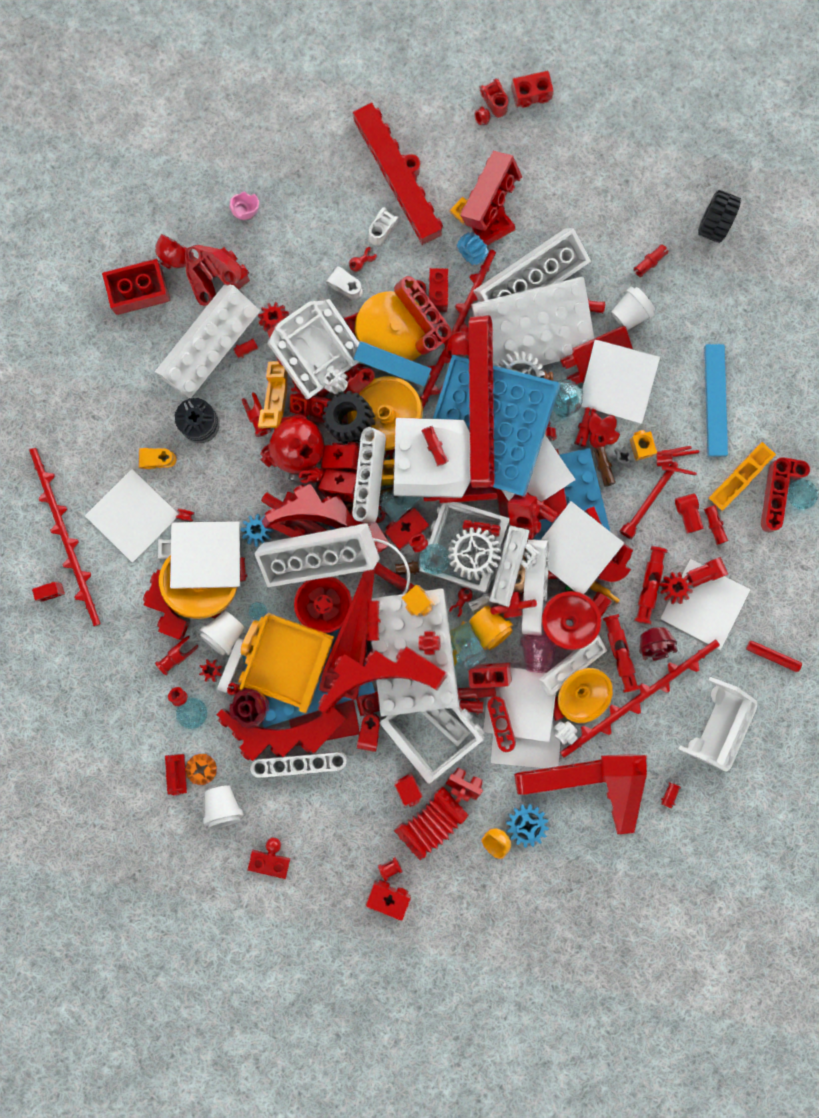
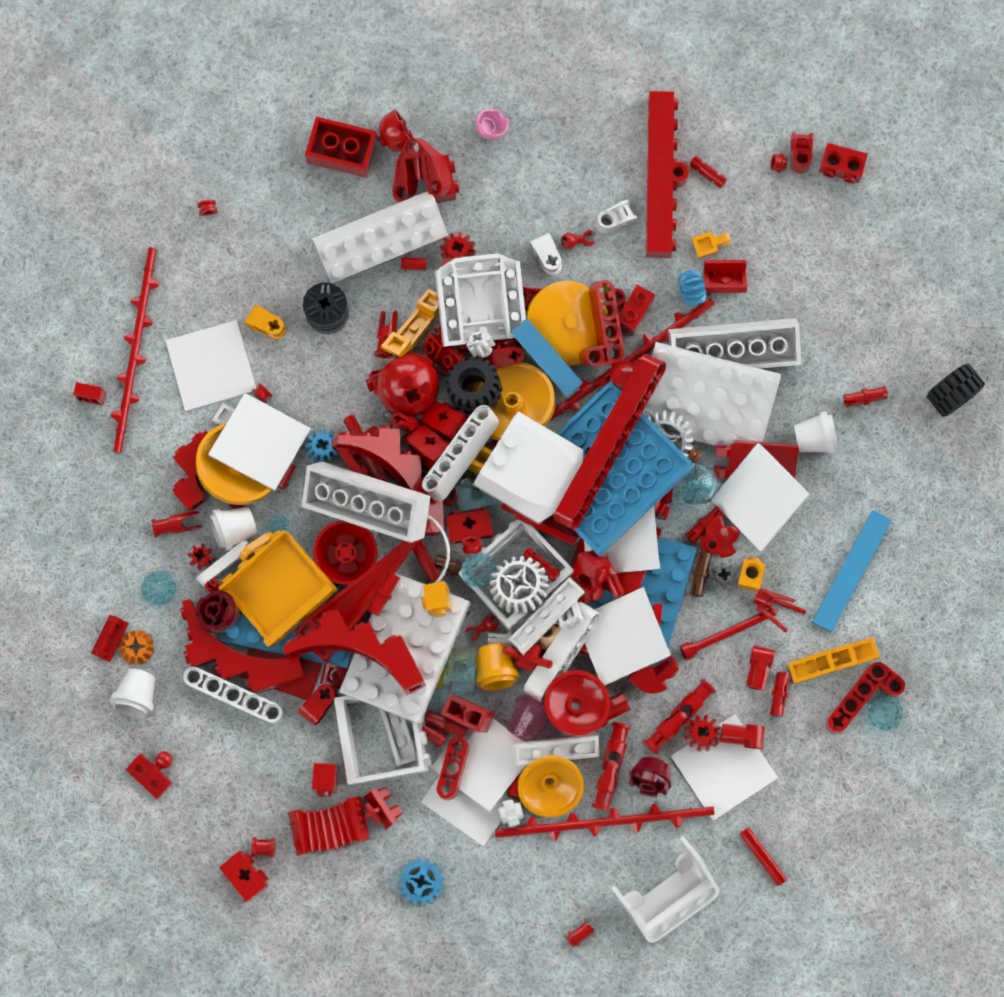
camera: 30 degrees right, 5 degrees down
(57, 393) = (207, 207): none -> red bush
(181, 699) = (154, 564): red bush -> none
(429, 643) = (425, 644): red gear -> none
(432, 152) = (708, 172): none -> red axle
(434, 446) = (539, 458): red pin -> none
(490, 191) = (740, 241): wedge -> none
(496, 843) = (381, 881): light orange hair -> none
(558, 777) = (483, 854): red beam -> none
(596, 306) = (782, 410): red pin -> none
(606, 592) = (624, 687): light orange hand -> none
(625, 783) = (539, 896): red wedge -> none

